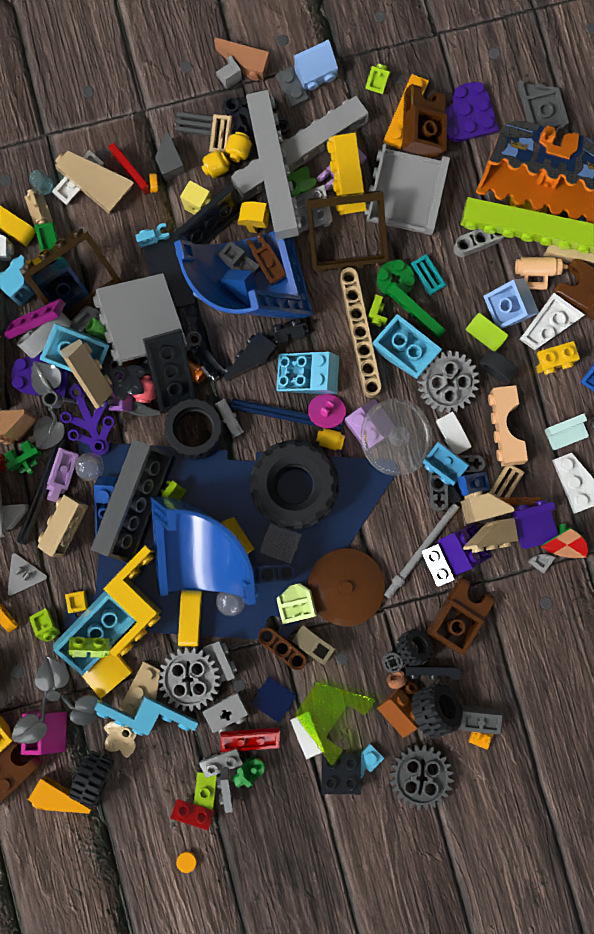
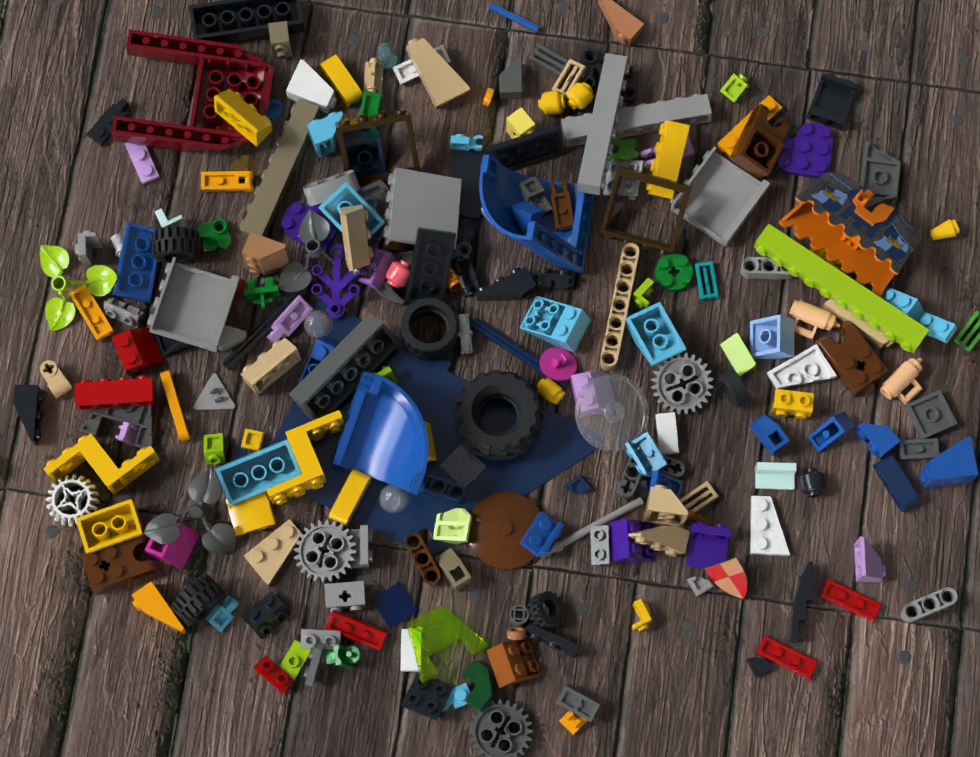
camera: 20 degrees right, 10 degrees down
(34, 319) = (323, 172): magenta tile -> none
(80, 646) = (256, 483): lime hinge -> none
(96, 329) = (379, 203): bright green cone -> none
(119, 739) = (235, 579): tan plate -> none
(120, 779) = (220, 615): none -> medium azure plate
(129, 168) = (471, 74): red tile -> none
(129, 382) = (389, 261): black plate -> none
(144, 96) = (522, 21): none -> blue bar
(145, 716) = (271, 565): medium azure bracket -> none
(161, 760) = (266, 615): none -> black bracket
(186, 861) = (248, 717): light orange tile -> none
(229, 74) = (600, 28): light grey panel -> none
(254, 215) = (566, 162): yellow brick -> none
(291, 87) = (652, 63): dark grey plate -> none
(316, 66) = (681, 53): light blue slope -> none
(381, 579) = (541, 535): none -> blue bracket
(390, 748) = (483, 691): none -> dark green tile
(393, 516) = (578, 485): none -> dark blue tile
(415, 310) = (678, 307): green beam -> none
(436, 710) = (540, 672): black tyre -> none
(466, 614) = (603, 596): reddish brown brick -> none
(471, 56) = (831, 101): none -> black panel
(502, 609) = (642, 610): none -> yellow bracket
(511, 450) = (726, 425): light nougat arch -> none
(547, 395) = (769, 434): none -> blue slope

